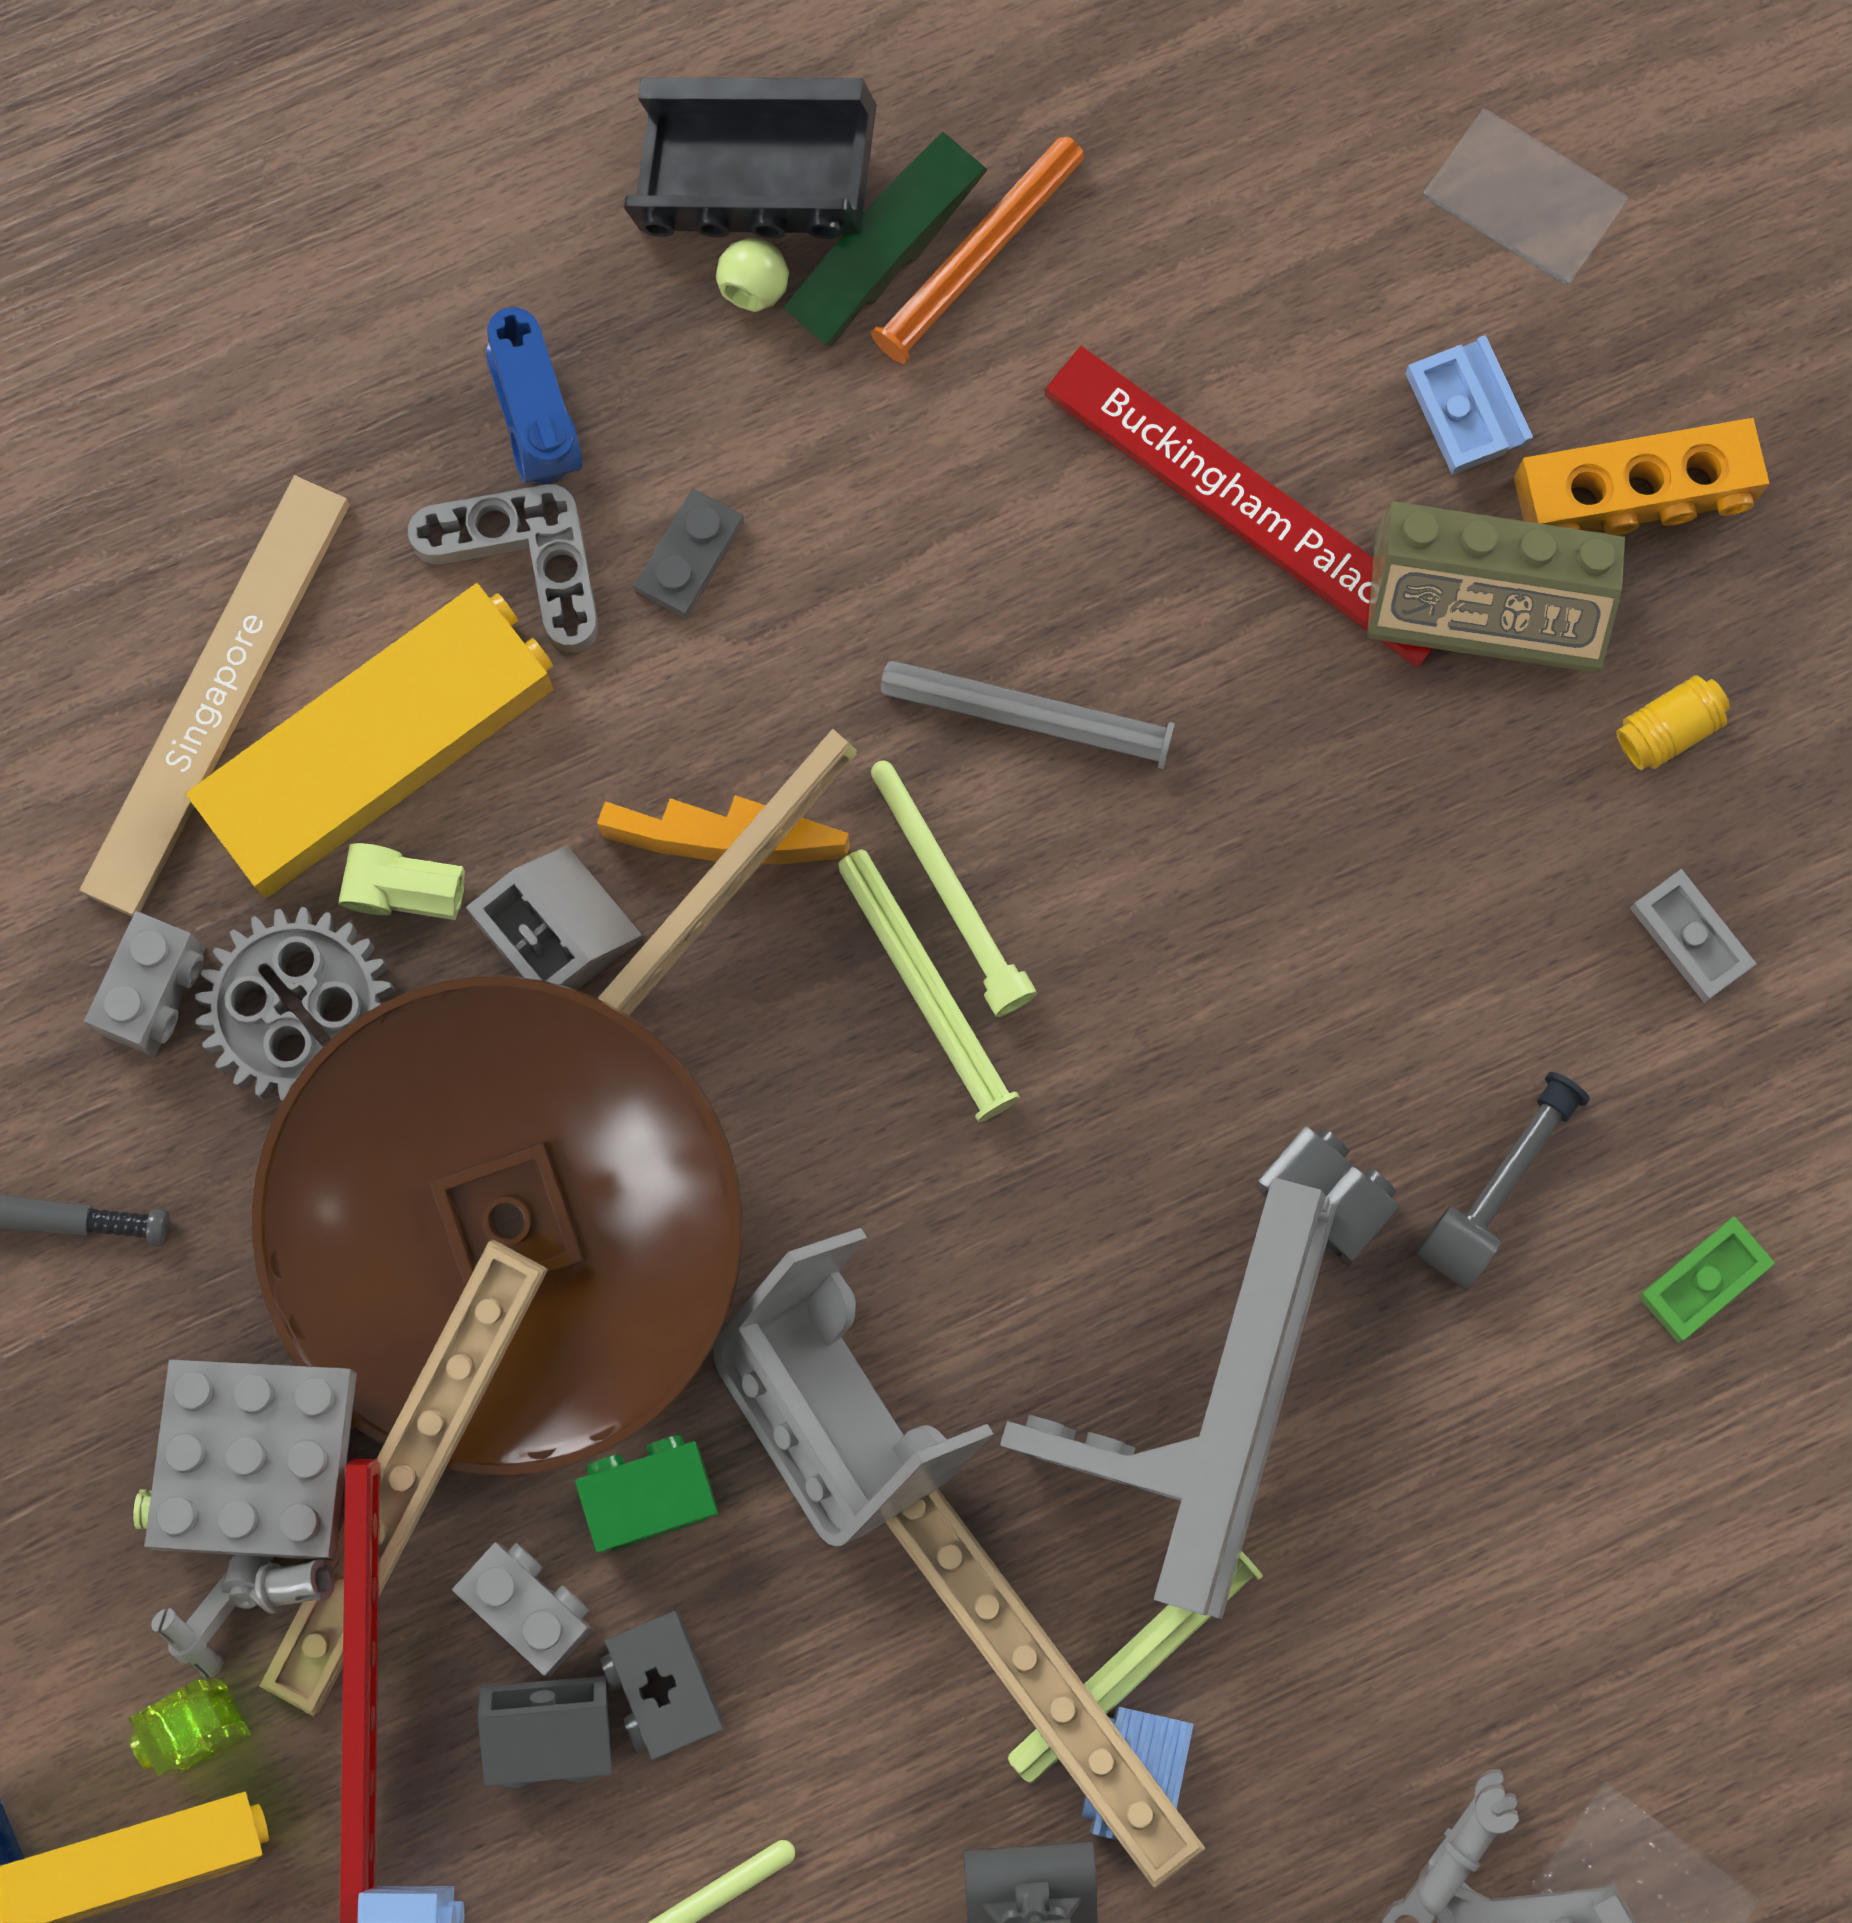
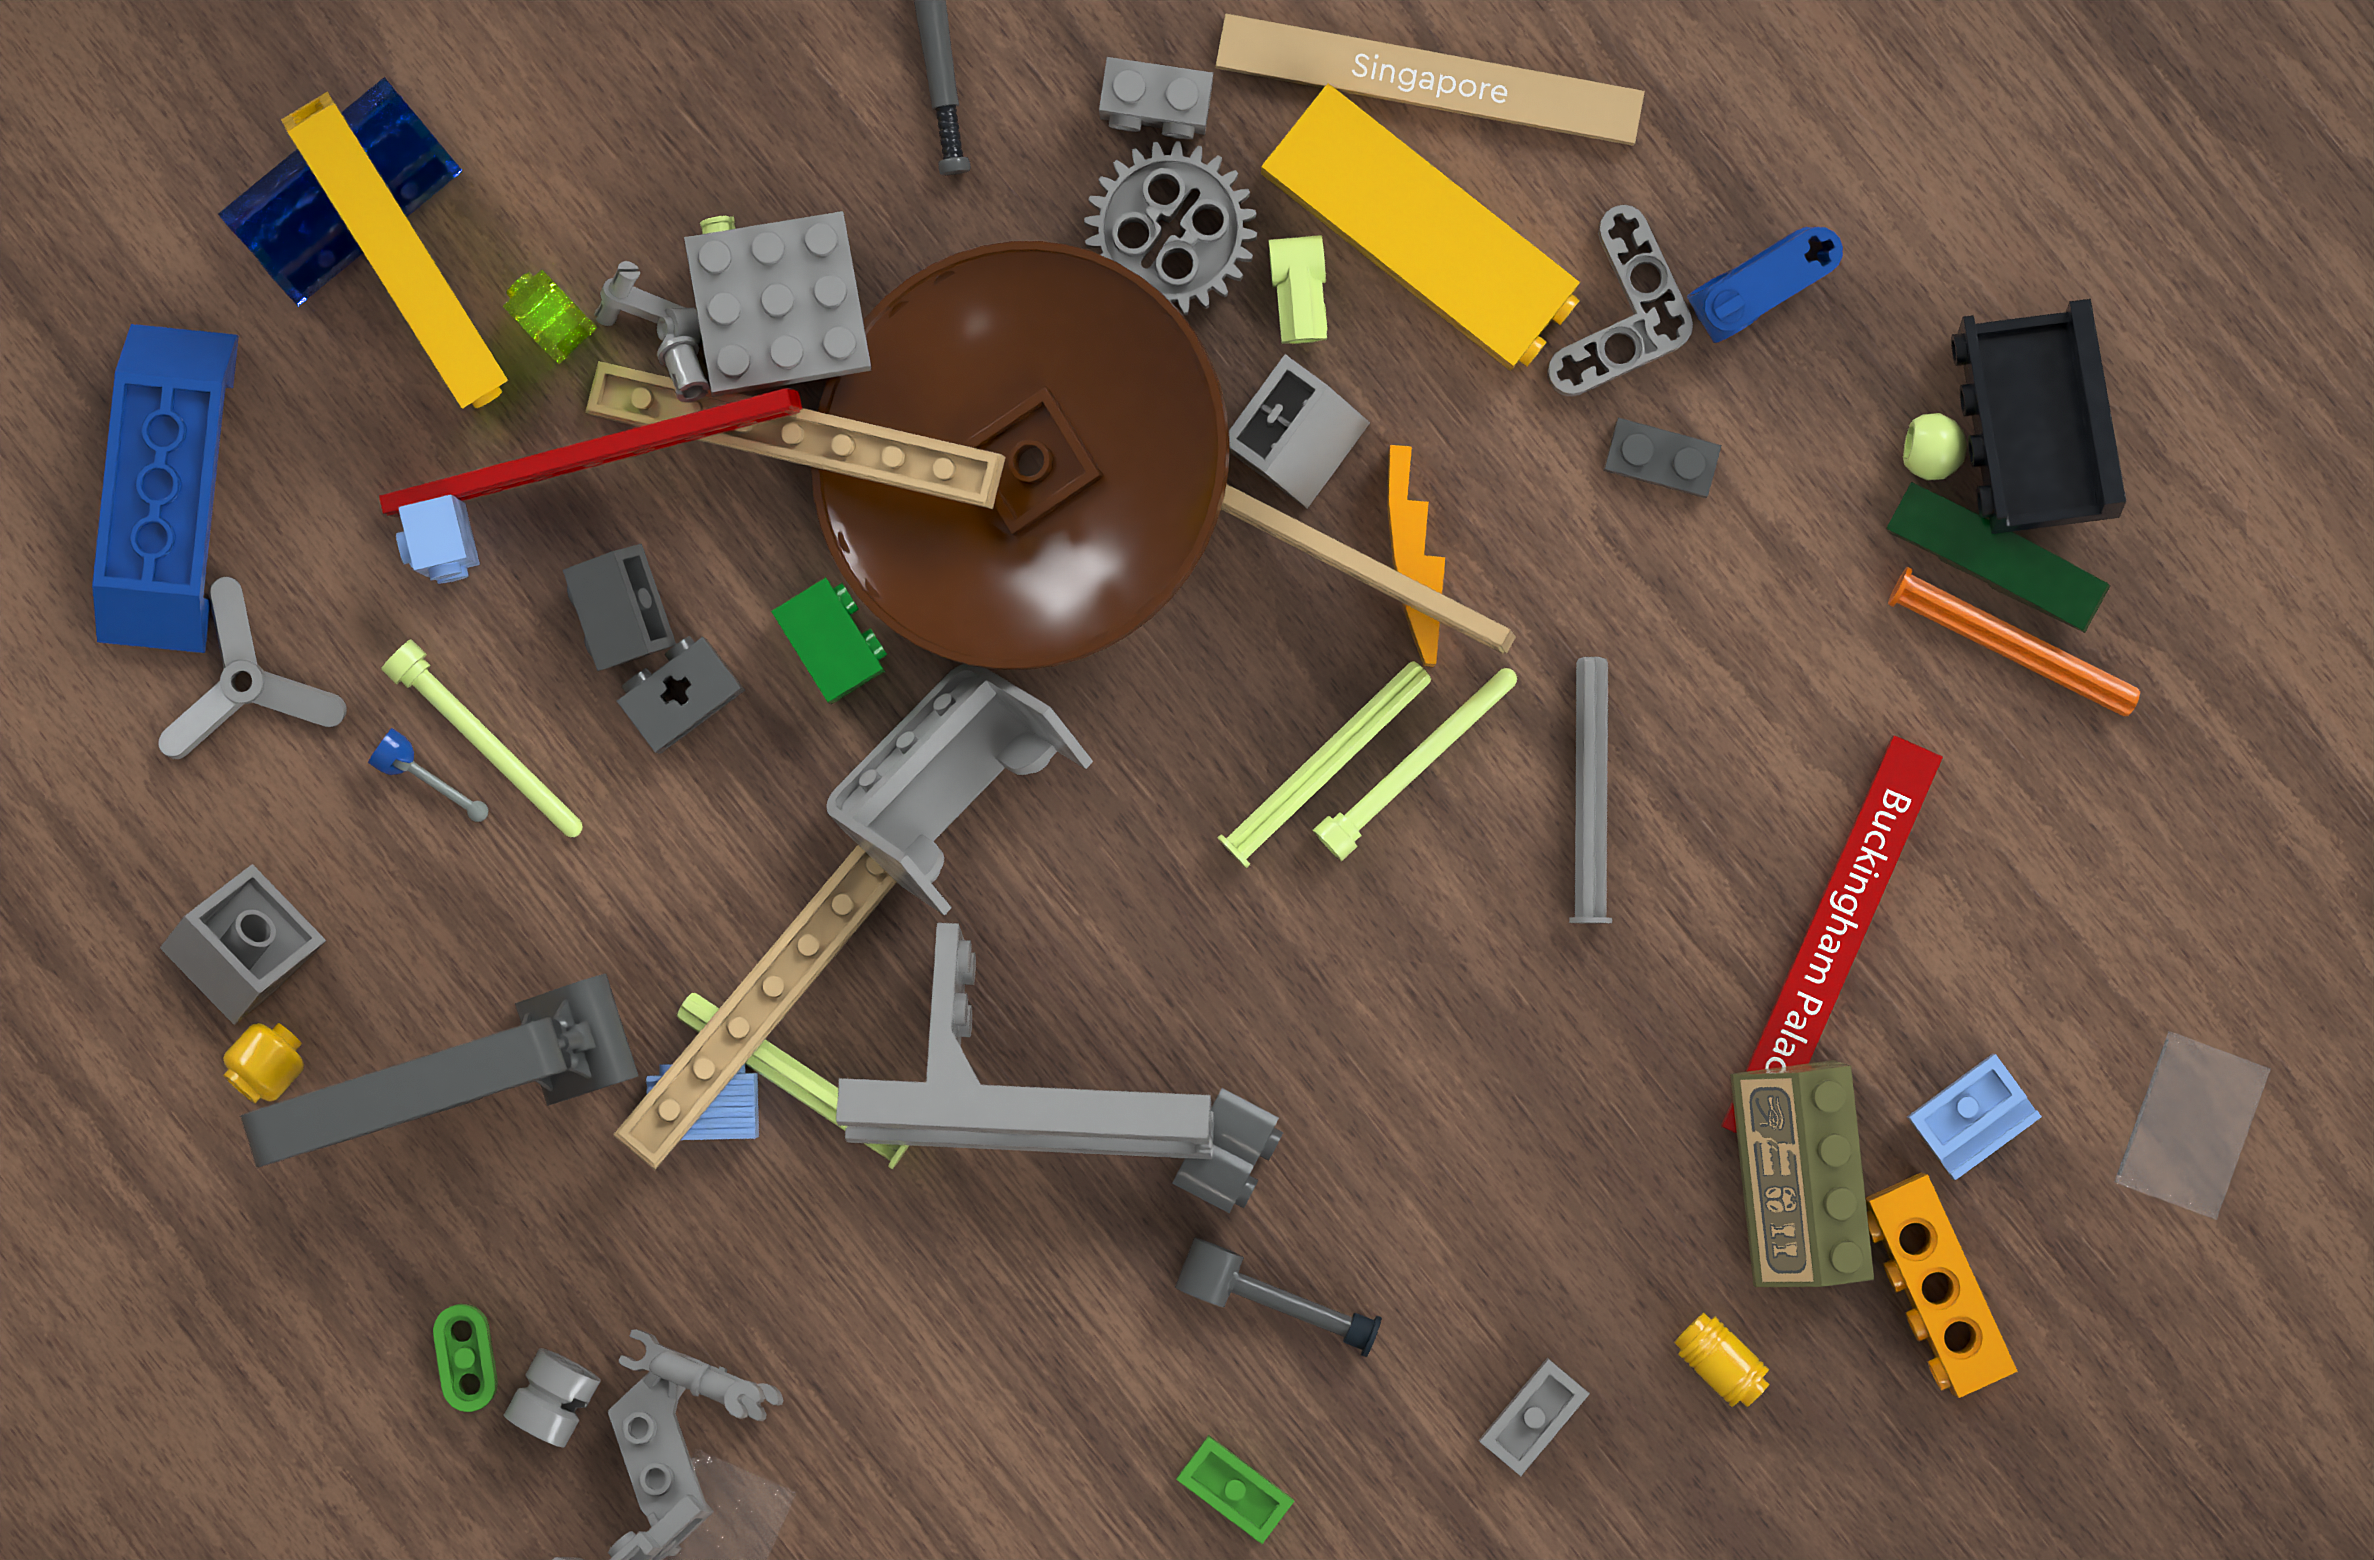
camera: 80 degrees right, 10 degrees up
(524, 1609) = (713, 563): light grey brick -> none

